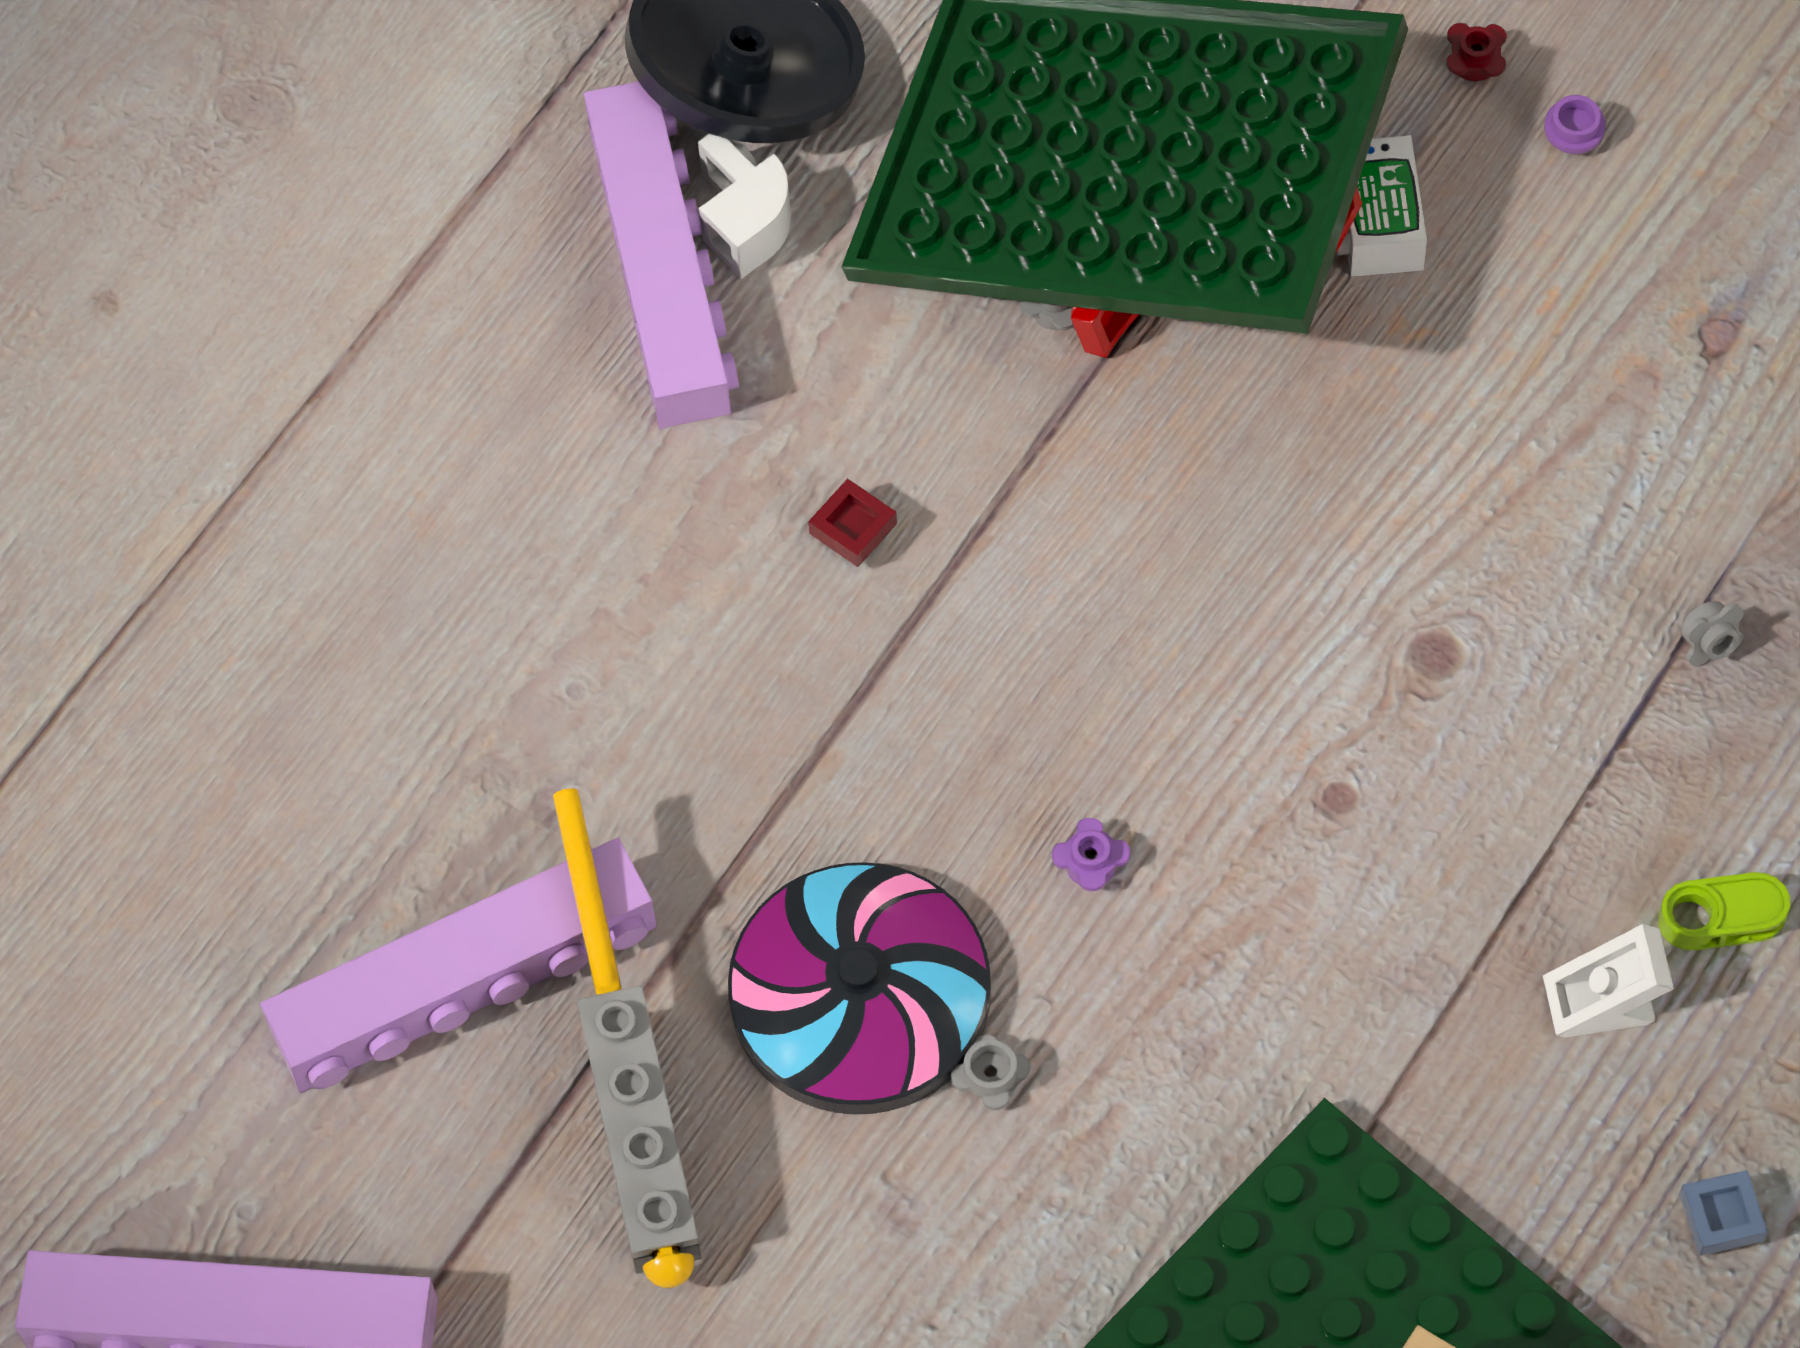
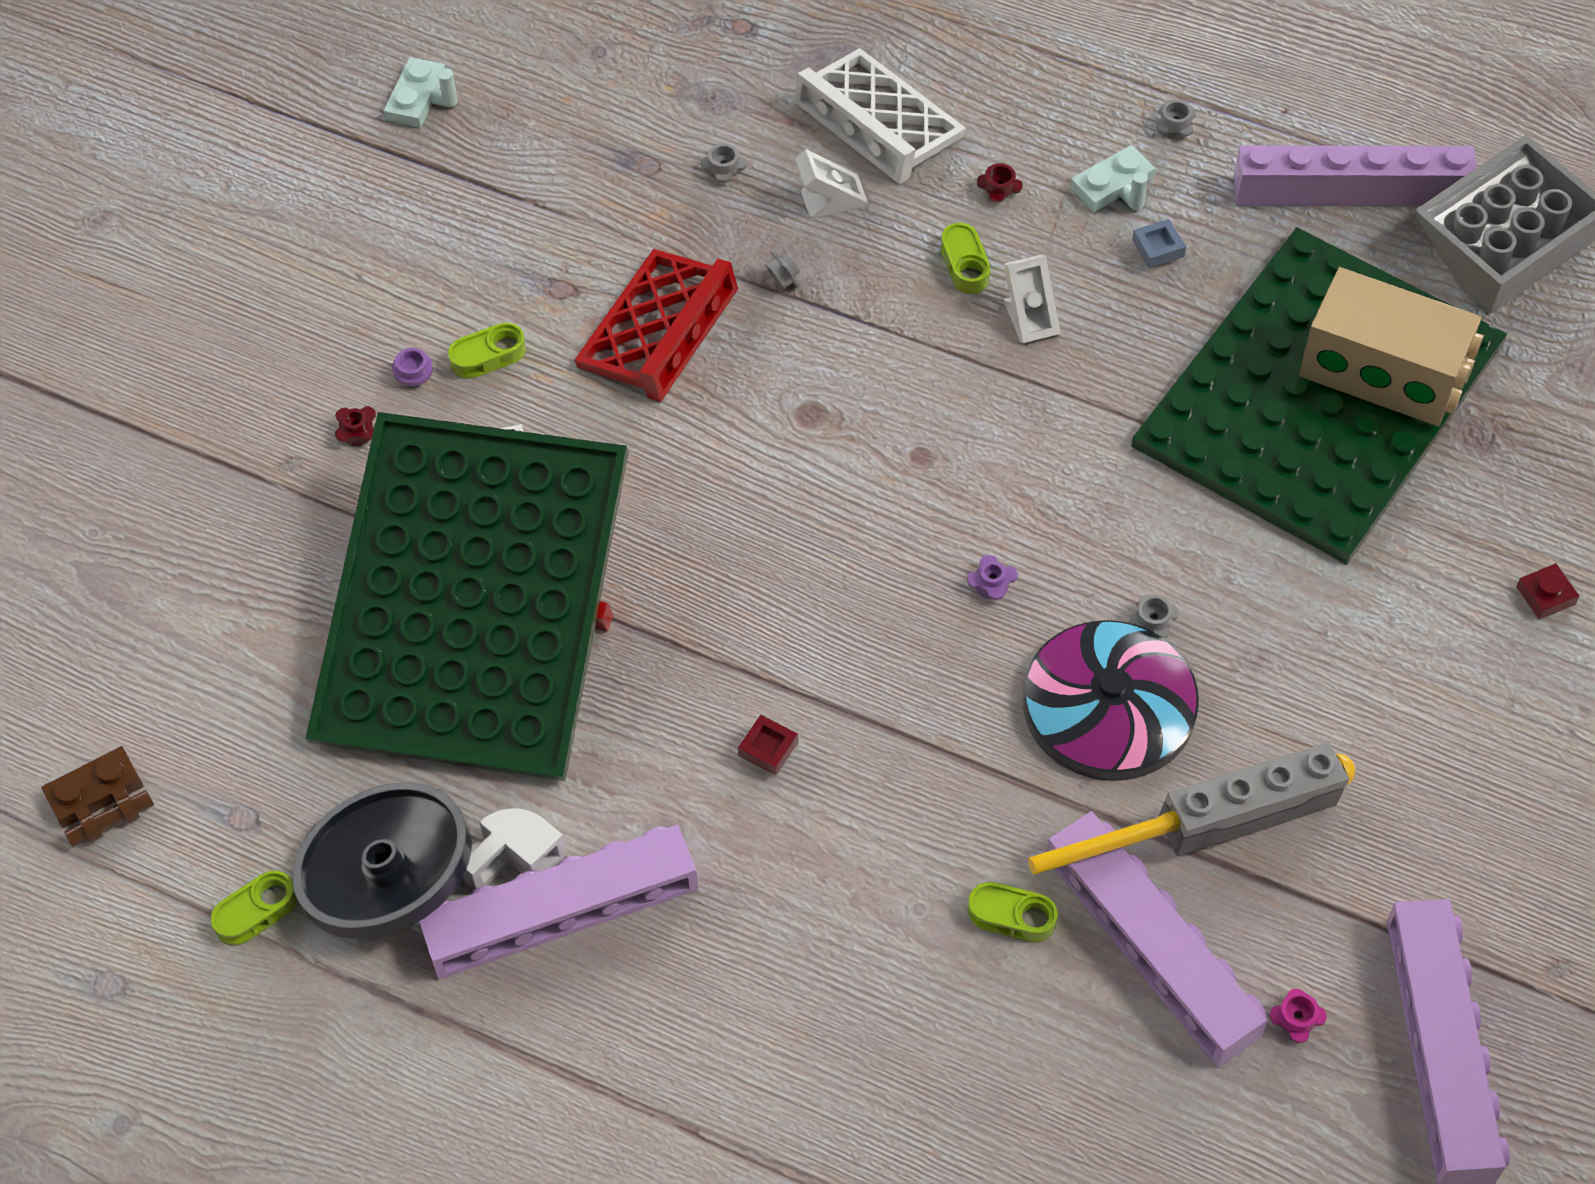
camera: 100 degrees left, 5 degrees down
(308, 1120) = (1303, 1003): none -> dark pink plate
(546, 770) = (1001, 908): none -> lime piece
(1597, 211) = (479, 355): none -> lime piece
(1607, 482) = (684, 329): none -> red fence

